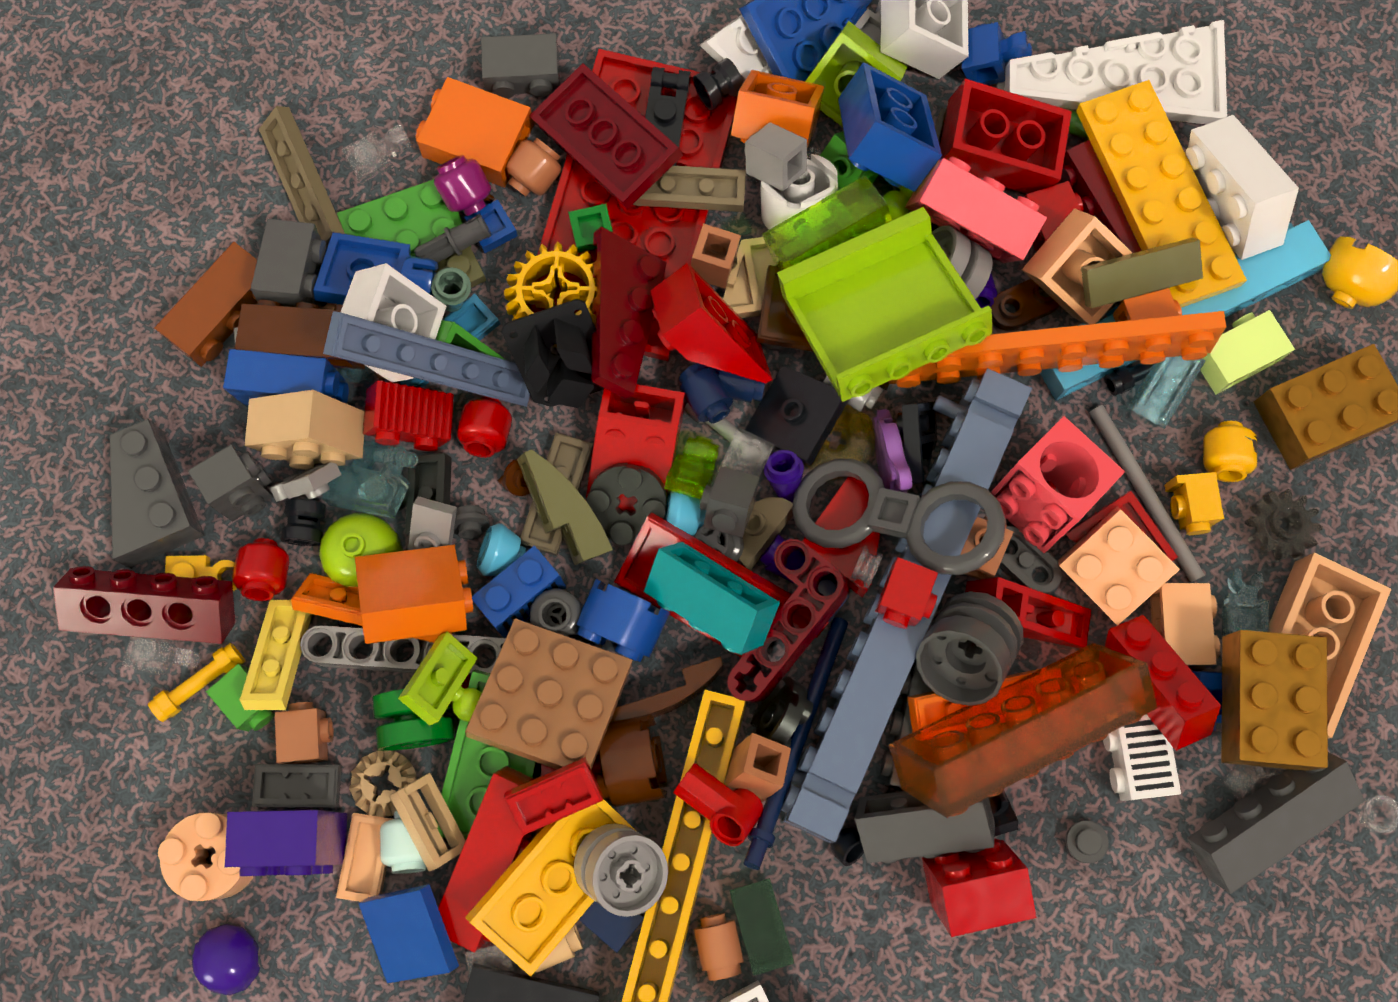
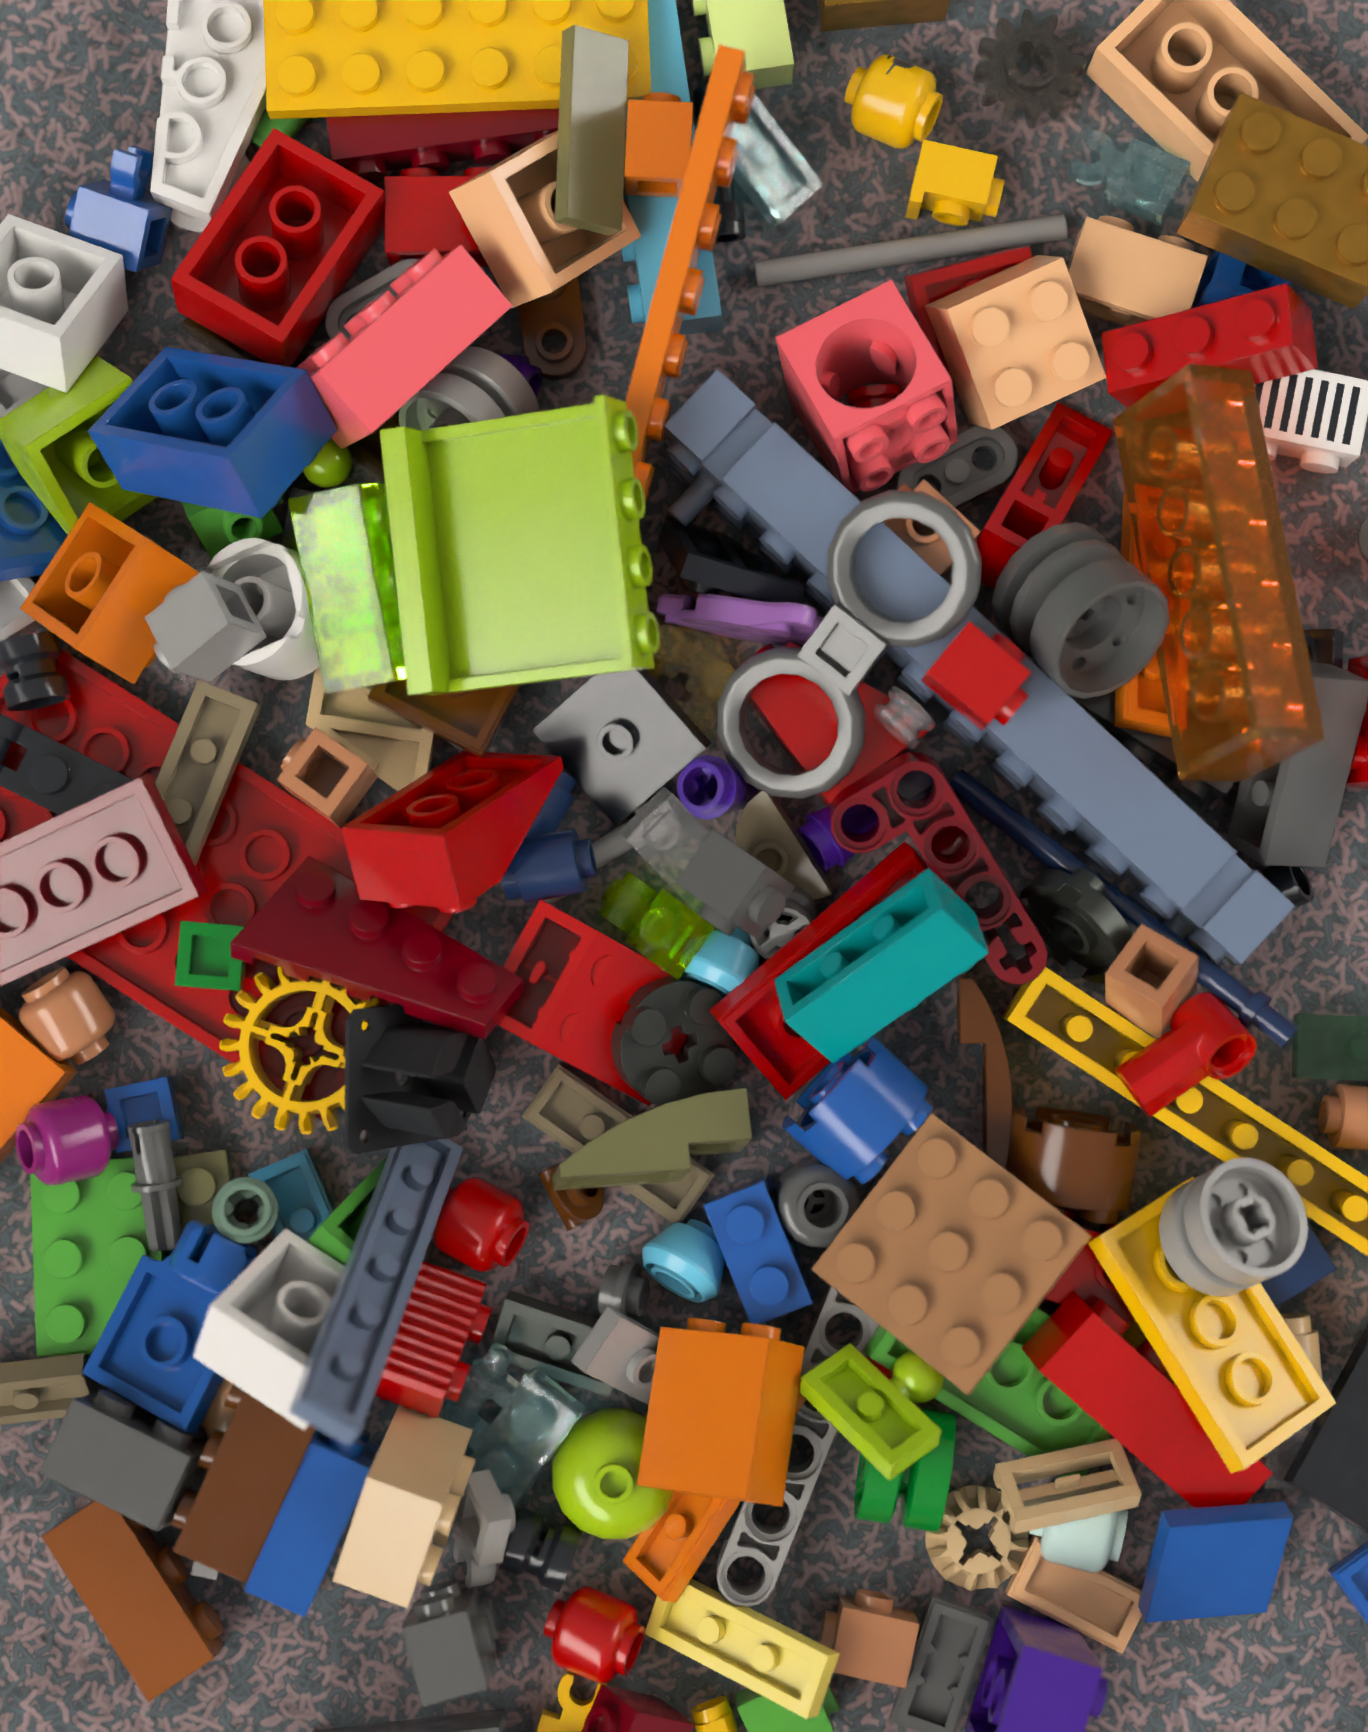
camera: 70 degrees left, 10 degrees up
(553, 796) = (1105, 1293): red plate -> none

